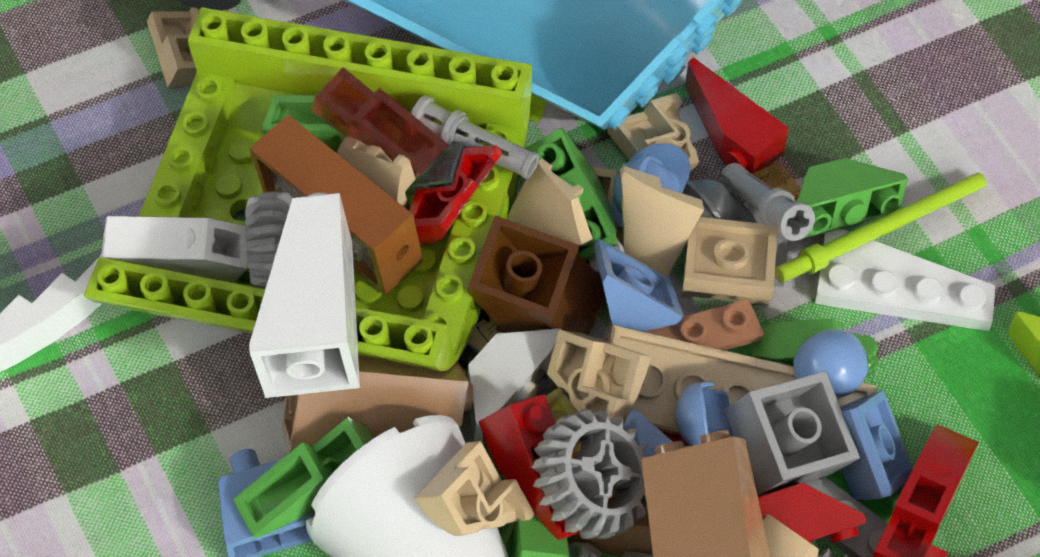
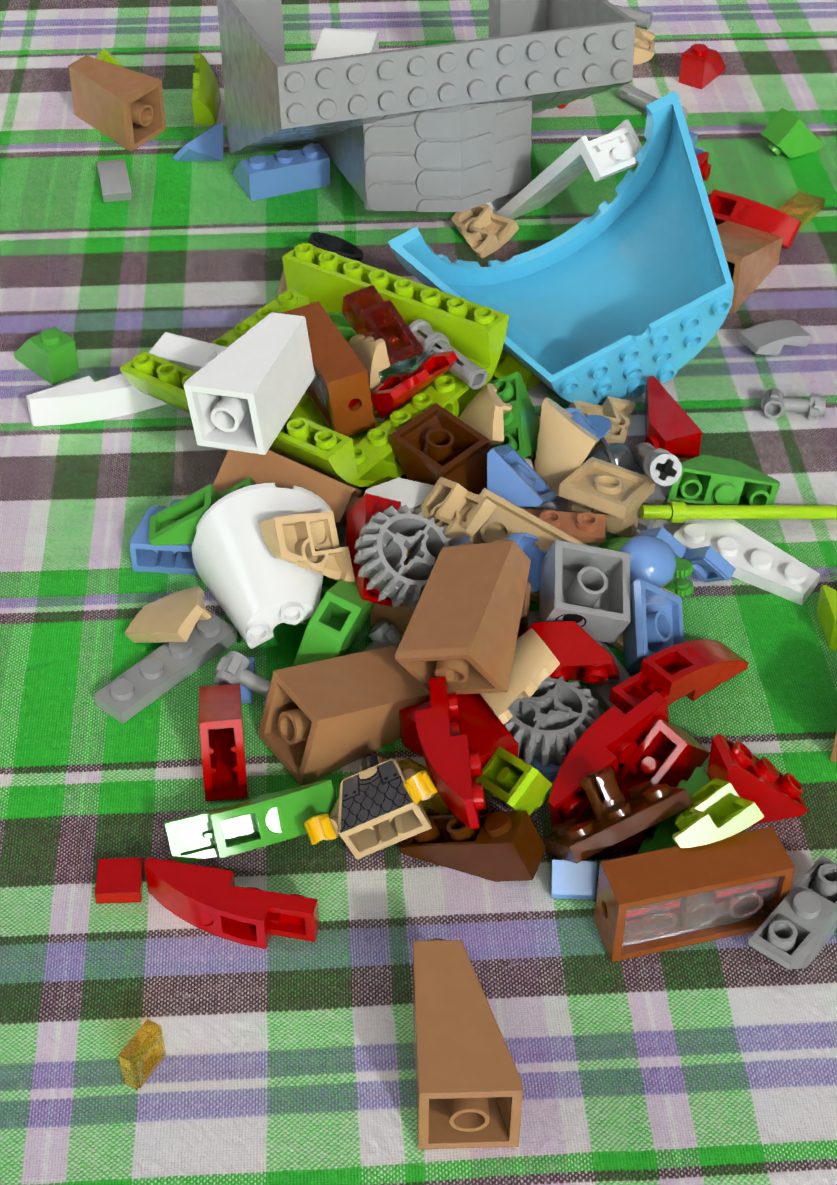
camera: 25 degrees right, 15 degrees down
(837, 43) = (775, 404): none -> light grey bar
(869, 322) = (706, 562): none -> medium blue tile

